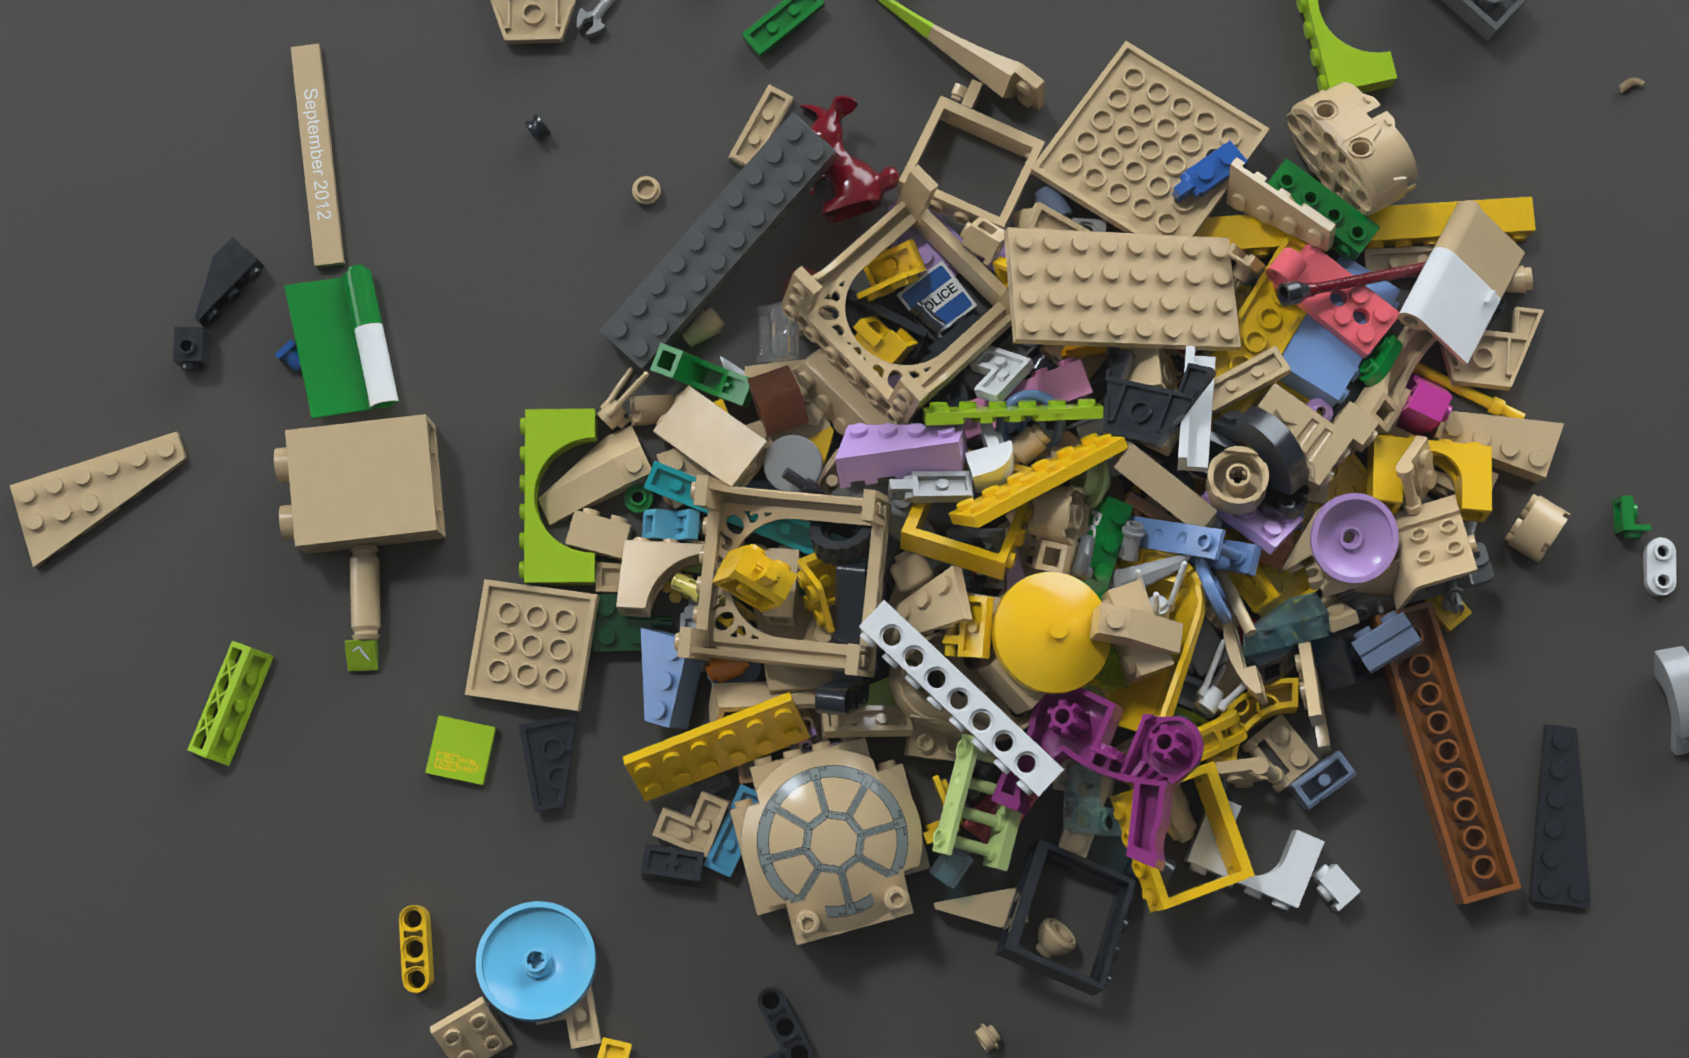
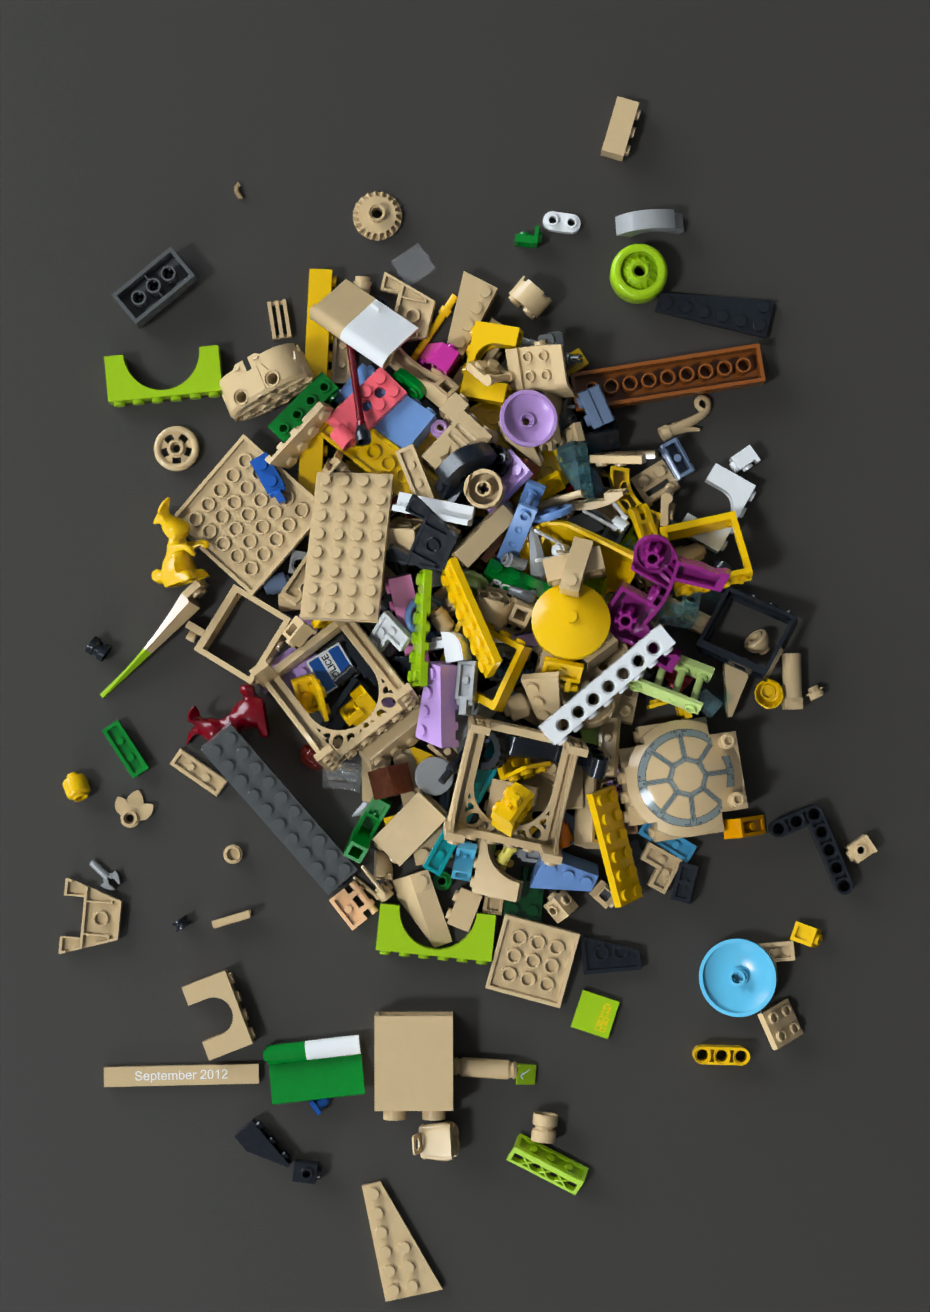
camera: 85 degrees left, 5 degrees up
(249, 531) = (437, 1141): none -> tan piece
(280, 691) = (544, 1127): none -> tan wheel
(449, 196) = (221, 986): none -> tan arch
(551, 198) = (231, 919): none -> tan tile
(582, 366) = (347, 907): none -> light nougat plate
(619, 677) = (560, 905): none -> tan brick
(642, 737) = (602, 894): none -> tan window
(701, 41) = (135, 806): none -> tan plate
(703, 327) = (332, 826): tan cone -> none
(768, 947) = (744, 827): none -> light orange slope
(977, 963) = (769, 694): none -> yellow hair
(1000, 998) = (792, 681): none -> tan piece
(1065, 59) = (178, 563): none -> yellow animal
(1237, 17) = (176, 432): none -> tan plate
(1376, 791) = (685, 425): none -> tan plant
(1470, 159) = (277, 303): none -> tan tile
(1560, 352) = (413, 265): none -> clear piece
(1578, 697) = (636, 288): none -> lime wheel
(1611, 299) = (377, 228): none -> tan gear

